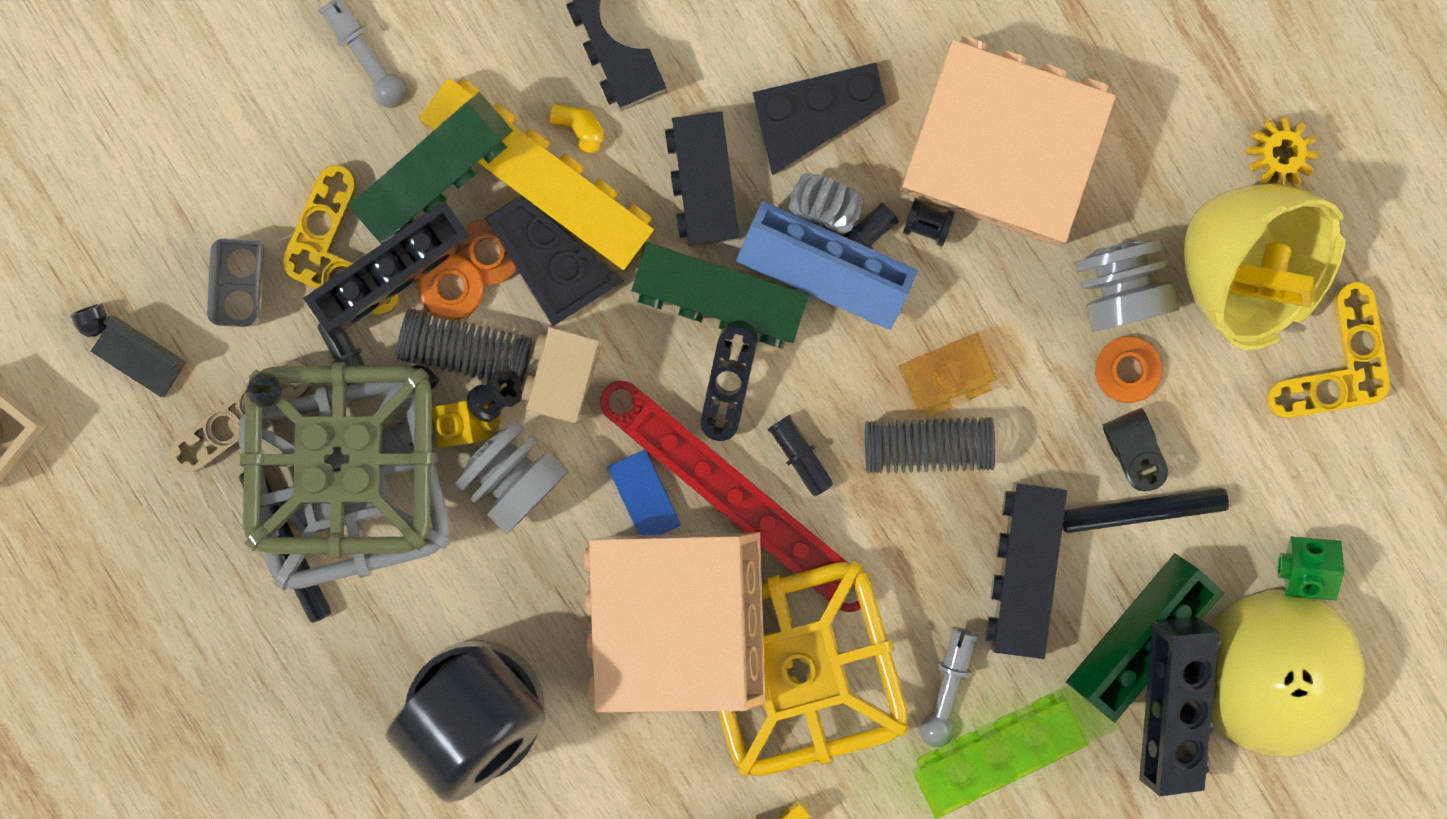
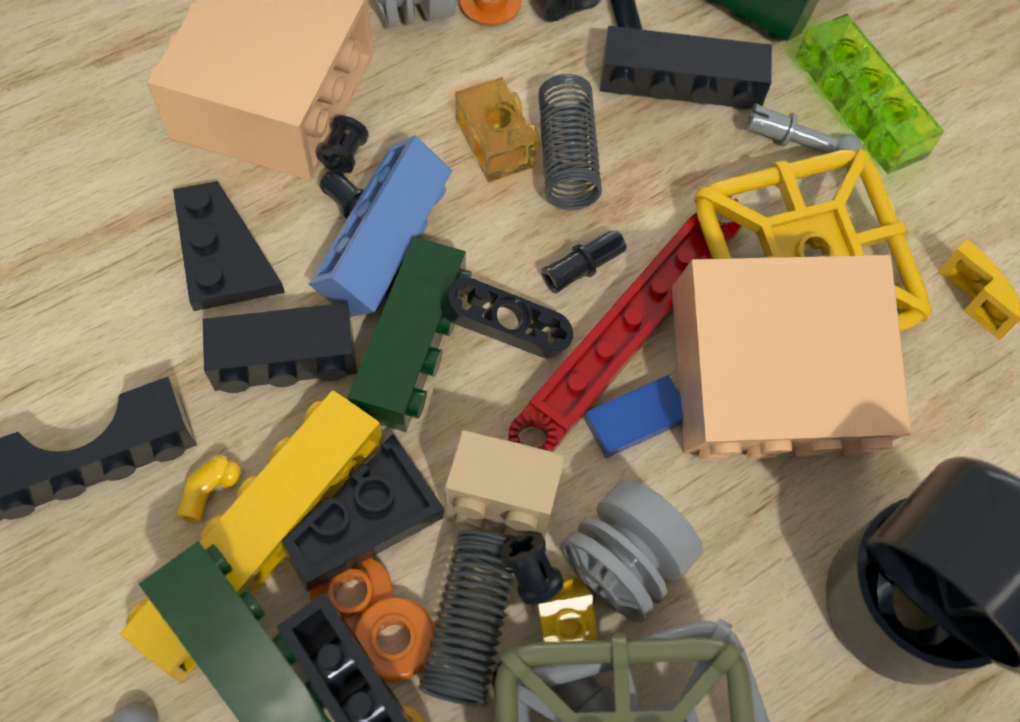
camera: 95 degrees left, 25 degrees down
(826, 202) = (313, 222): light grey gear -> none

